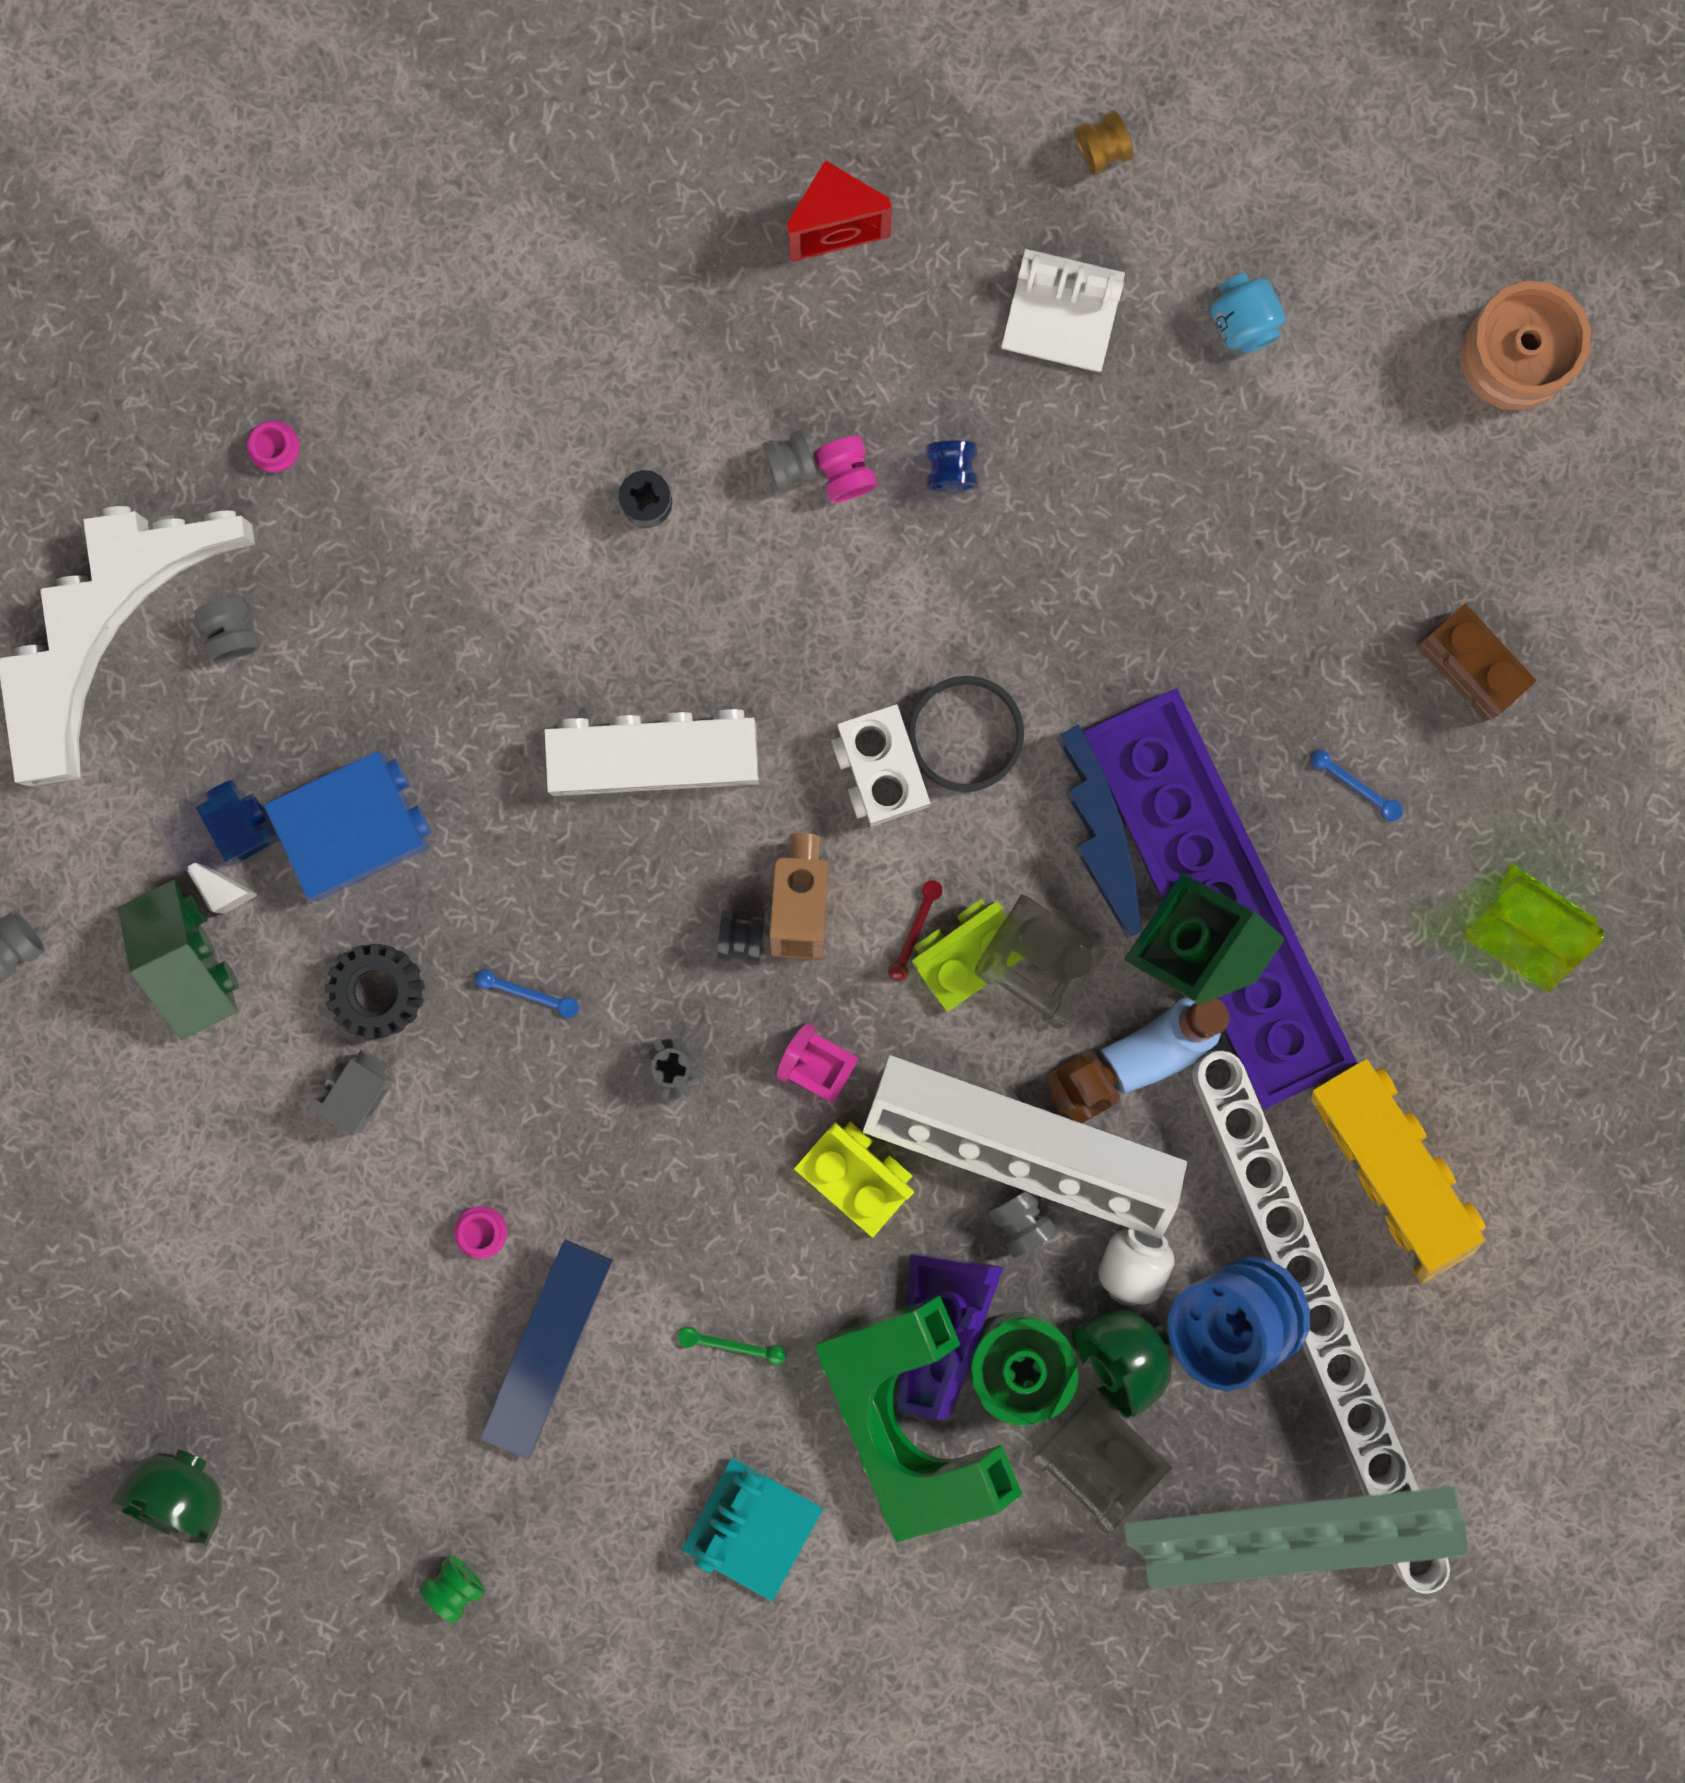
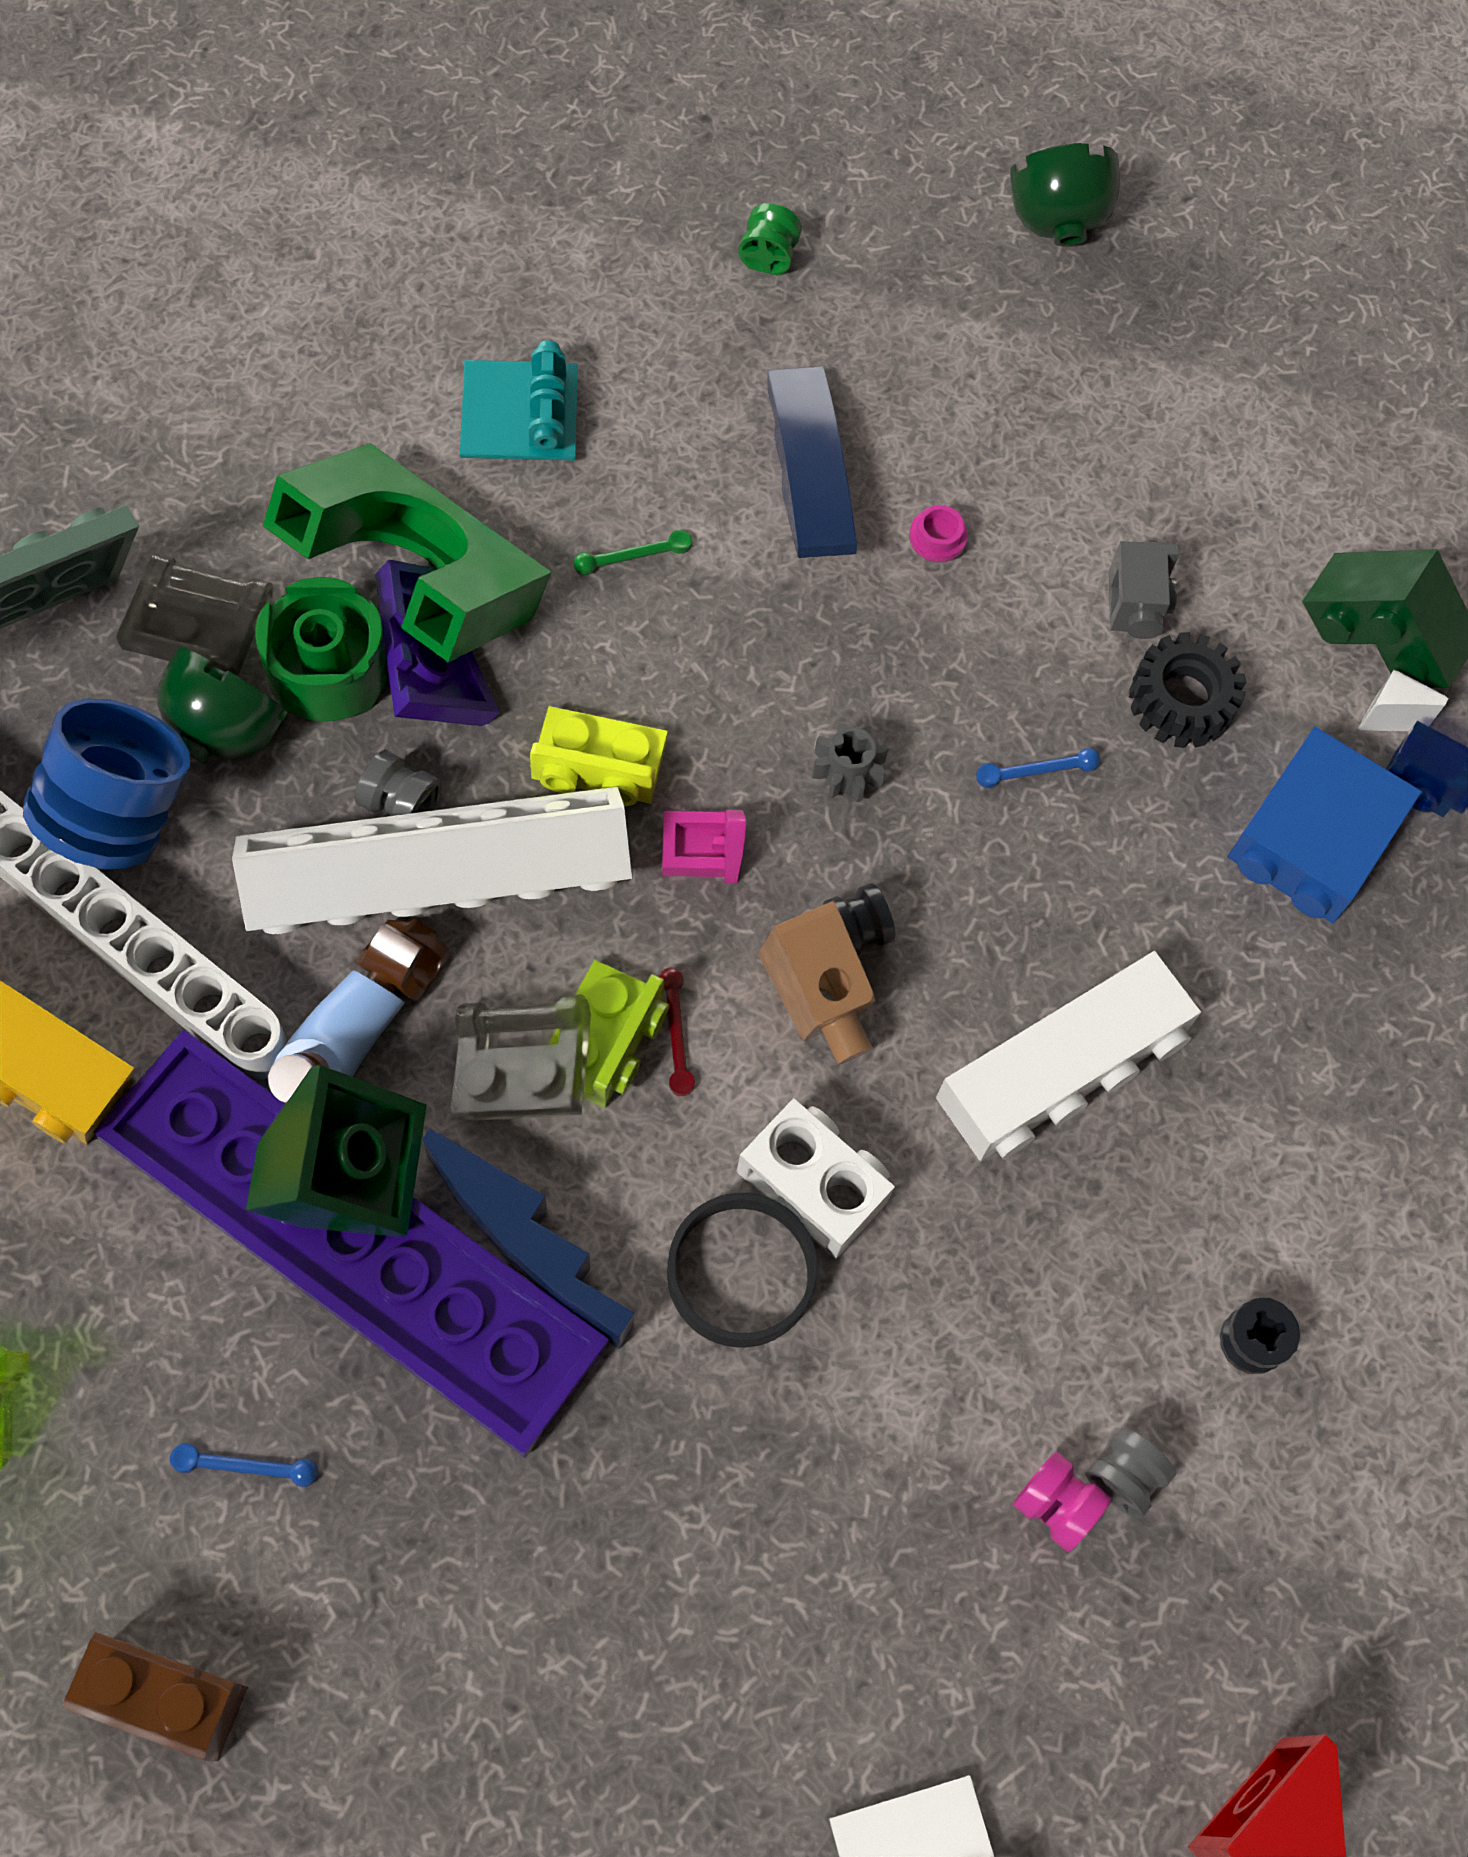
camera: 140 degrees right, 20 degrees down
(951, 465) = (941, 1578): clear blue wheel -> none
(1136, 1267) = (249, 799): white head -> none

